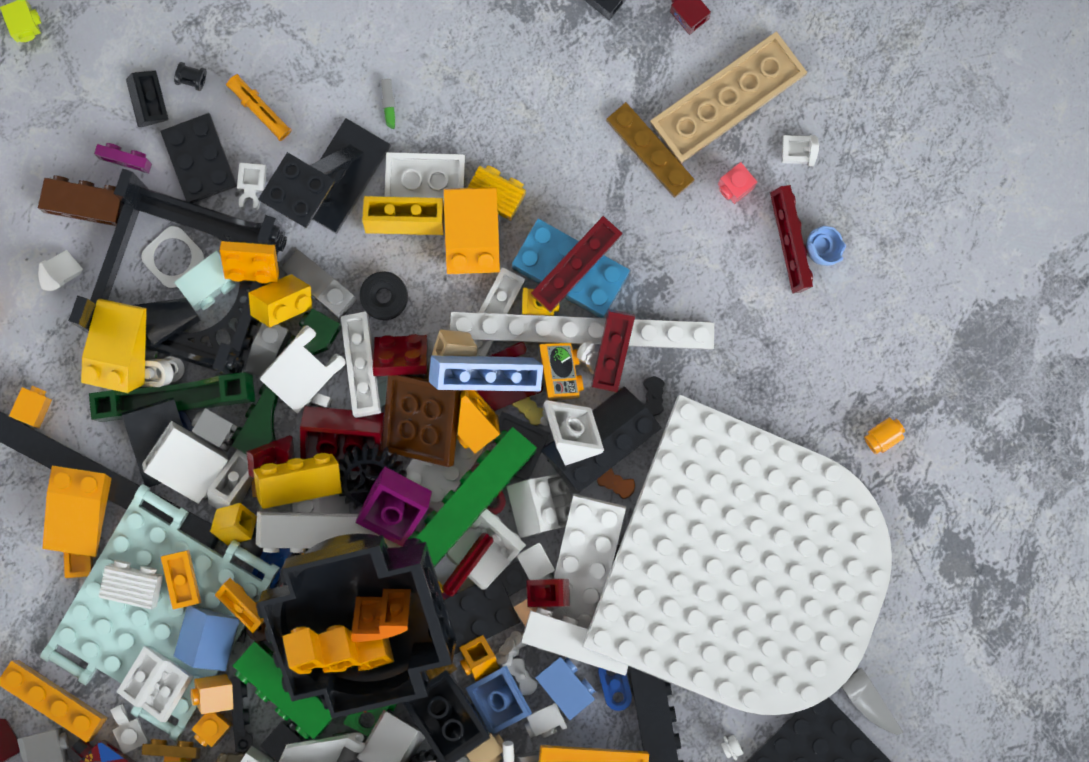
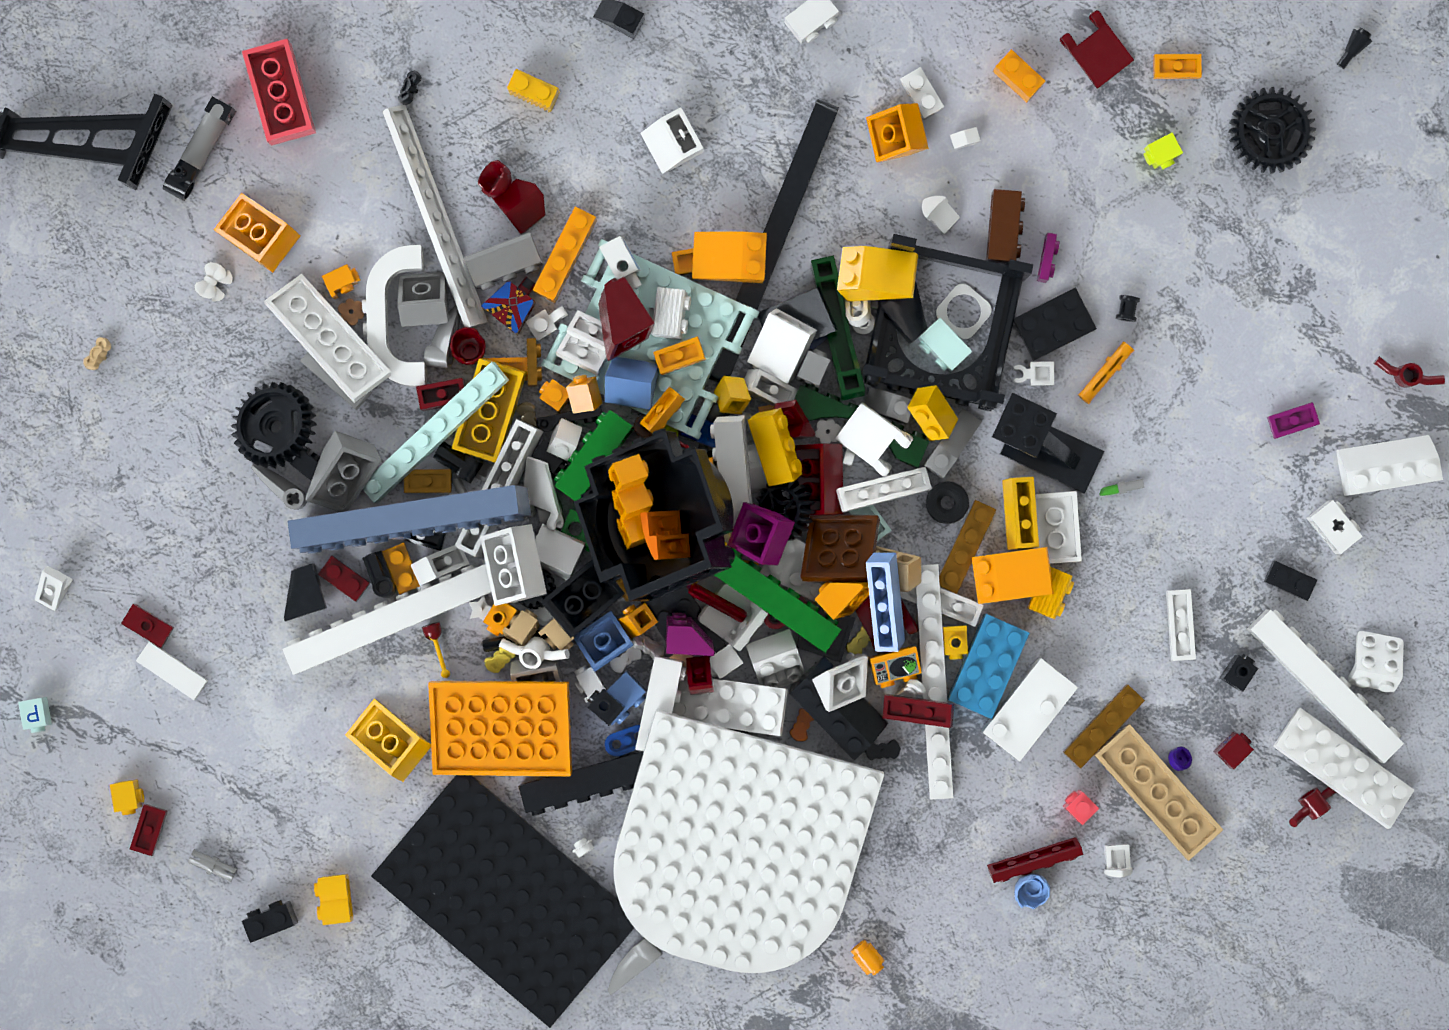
camera: 80 degrees right, 5 degrees up
(31, 406) = (817, 204): light orange brick -> none
(56, 638) = (615, 253): none -> white torso
(129, 640) = (622, 318): none -> dark red slope
(146, 98) = (1104, 271): black slope -> none
(249, 262) = (962, 383): light orange plate -> none
(262, 722) = (564, 439): none -> white brick
(282, 421) = (830, 425): none -> white plant
(400, 355) = (895, 523): dark red plate -> none
(434, 280) = (966, 546): none -> pearl gold plate
(502, 604) = (686, 637): none -> magenta slope
(546, 54) = (1181, 625): none -> white plate
(574, 694) = (611, 713): none -> black brick
(576, 264) = (991, 671): dark red plate -> none
(644, 241) = (1029, 709): none -> white brick
(693, 70) = (1180, 758): none -> dark purple tile

